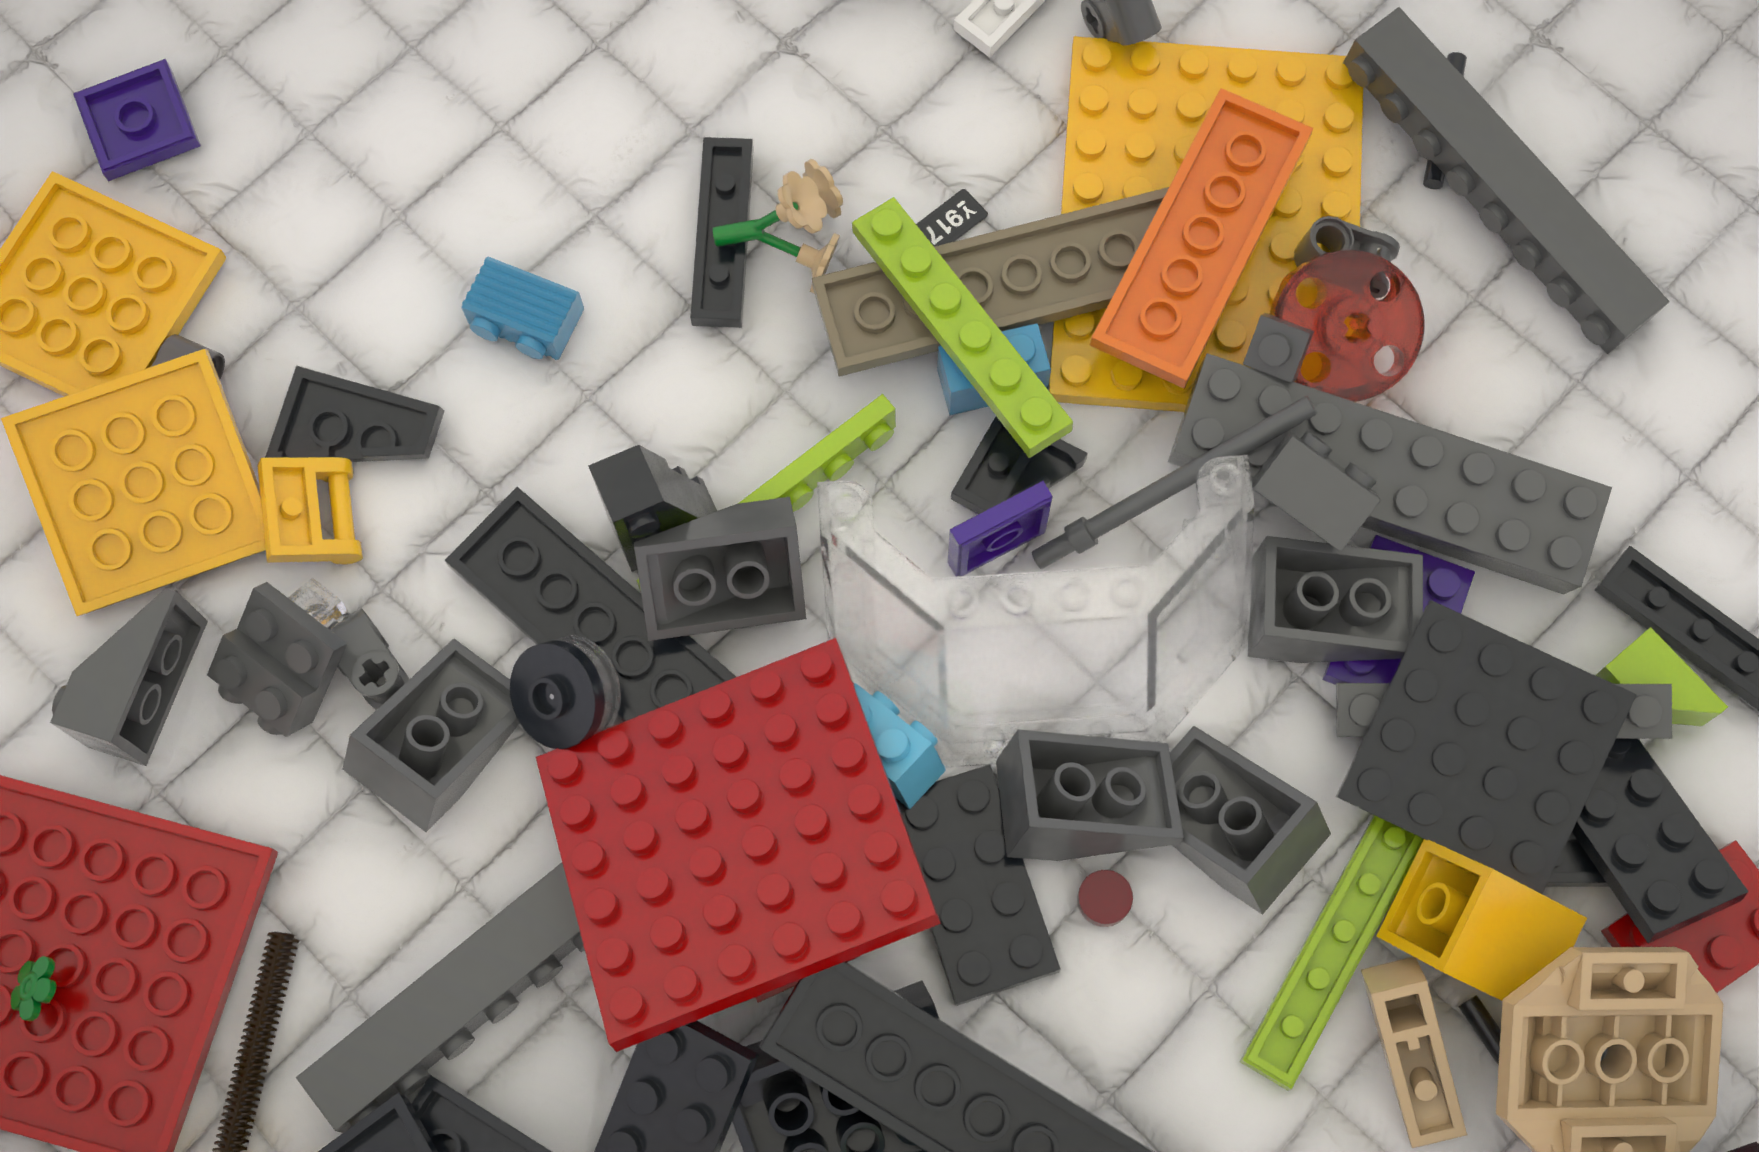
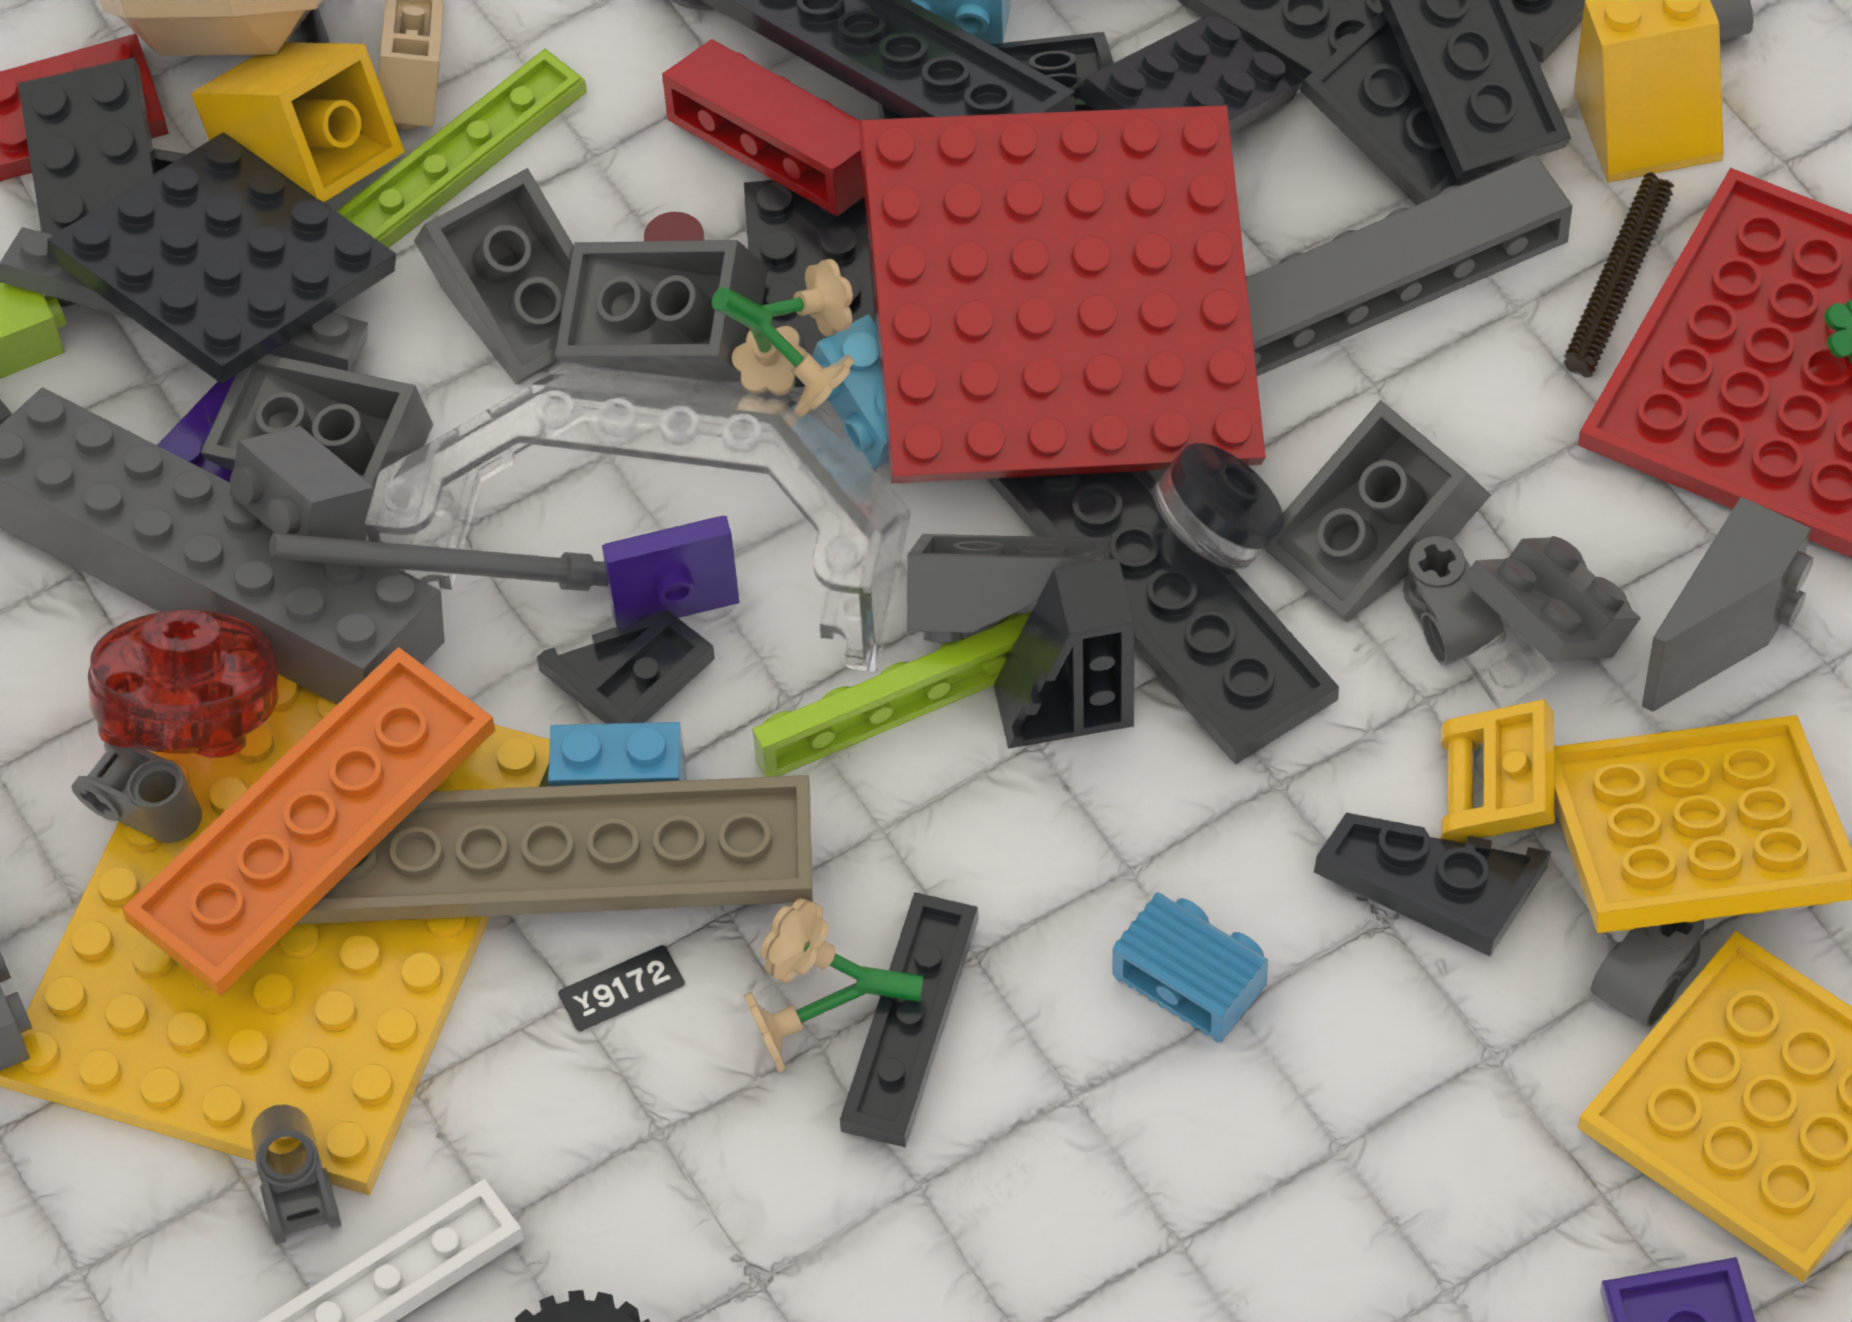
camera: 165 degrees left, 15 degrees down
(962, 327) = (646, 778): lime plate -> none
(971, 742) = (774, 356): none -> tan plant
(1046, 1017) = (767, 124): none -> red brick
(1278, 347) = (278, 648): dark grey plate -> none

